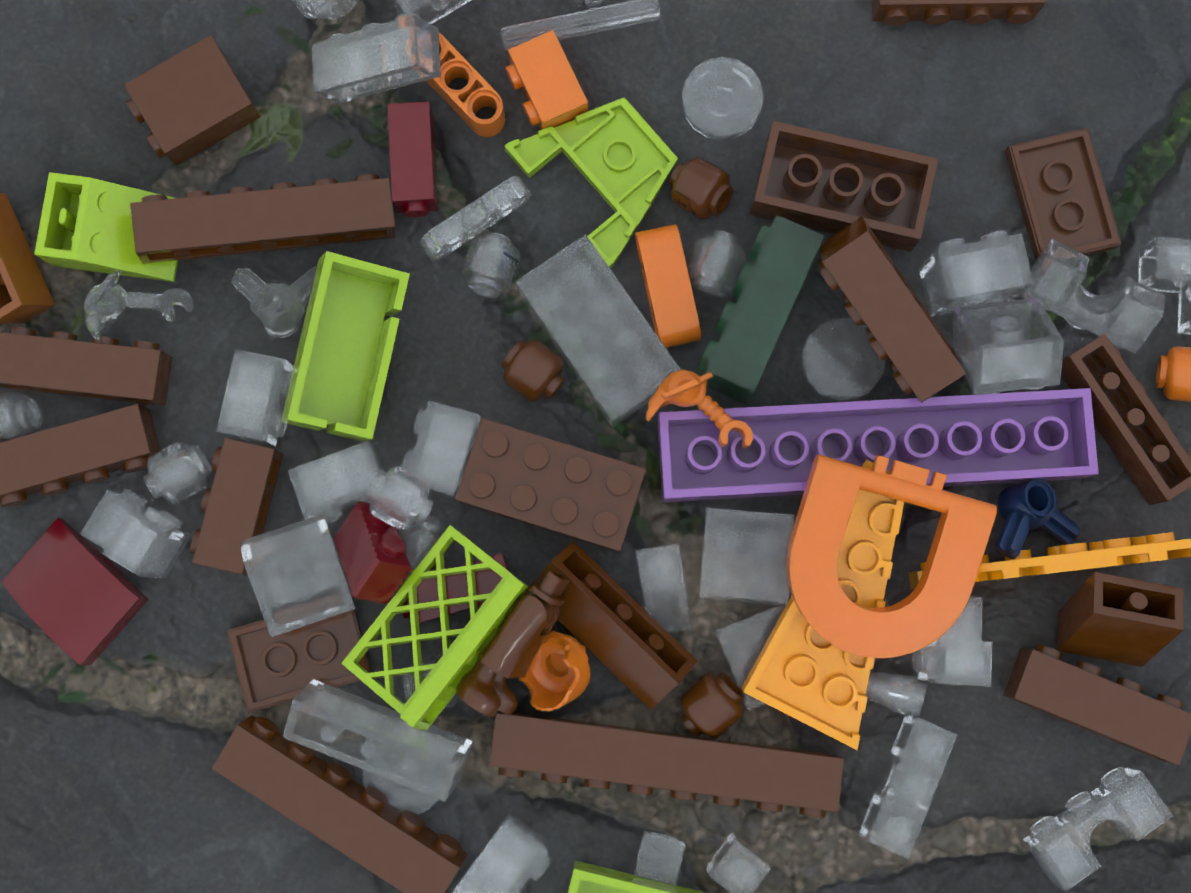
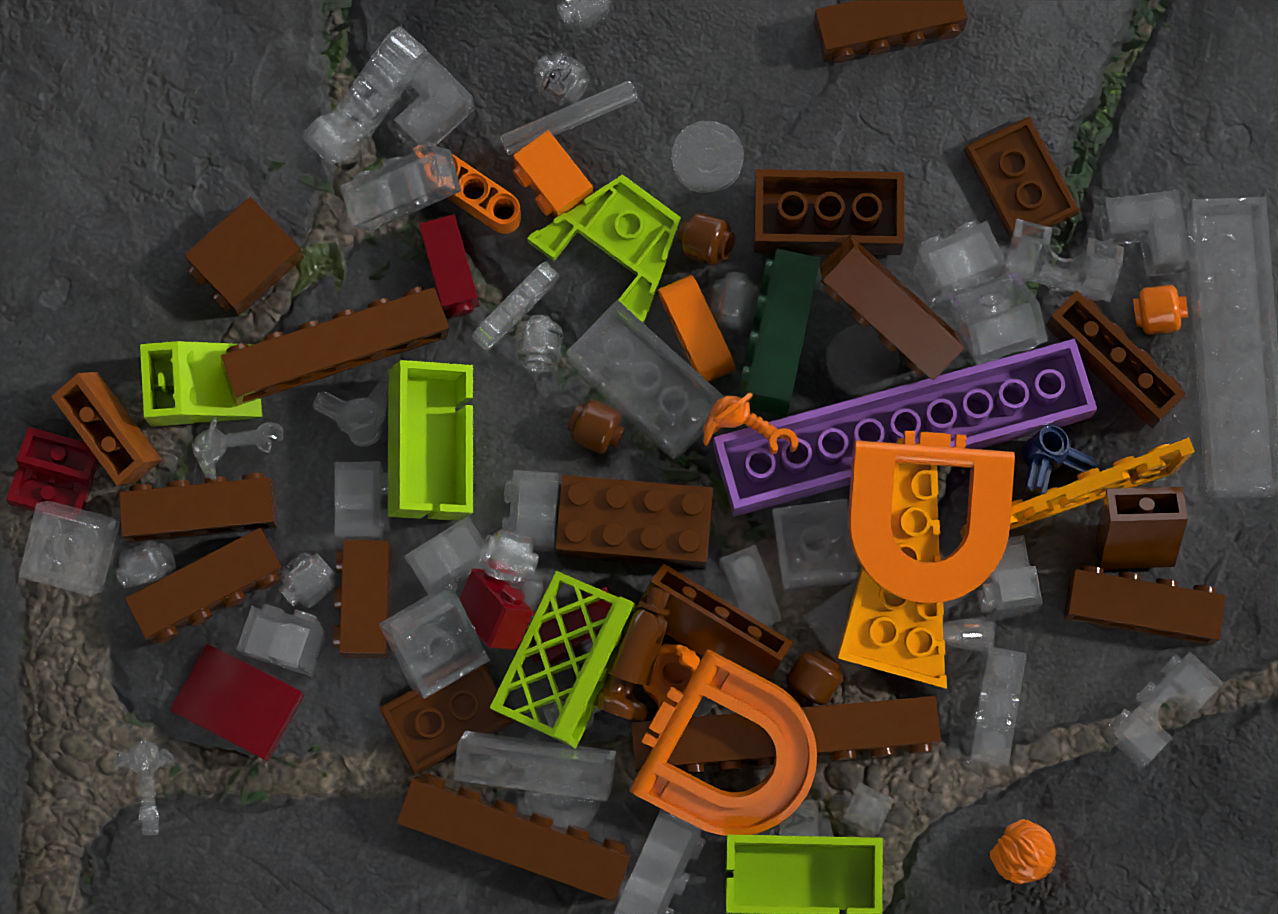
camera: 15 degrees left, 5 degrees down
(559, 824) = (708, 806): none -> orange piece

